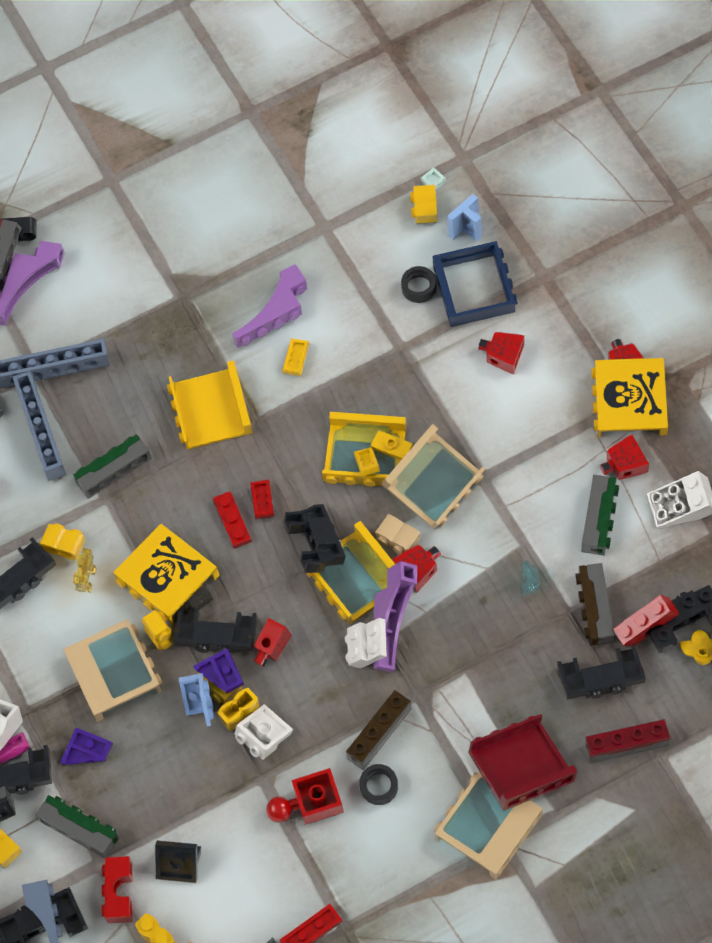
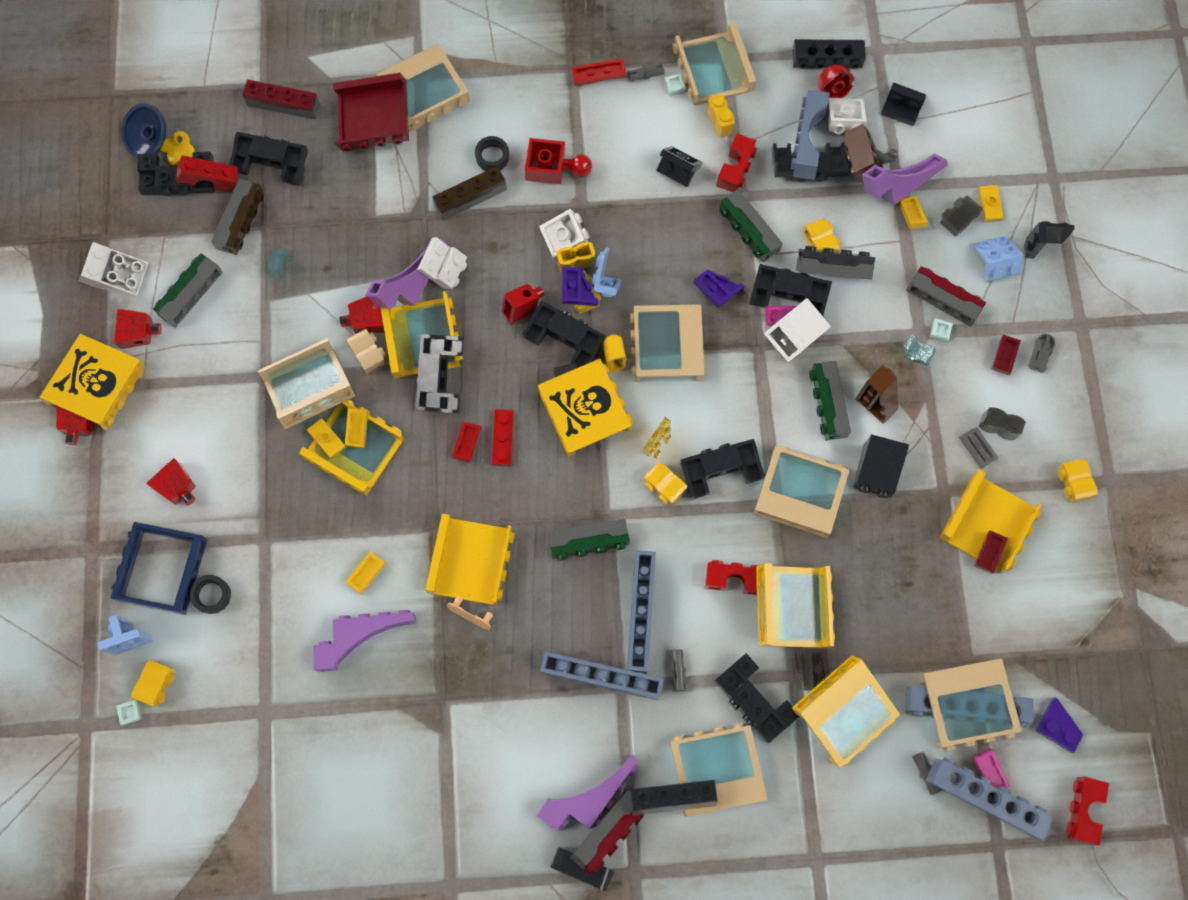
camera: 165 degrees left, 10 degrees up
(205, 366) = (483, 623): none -> light nougat piece

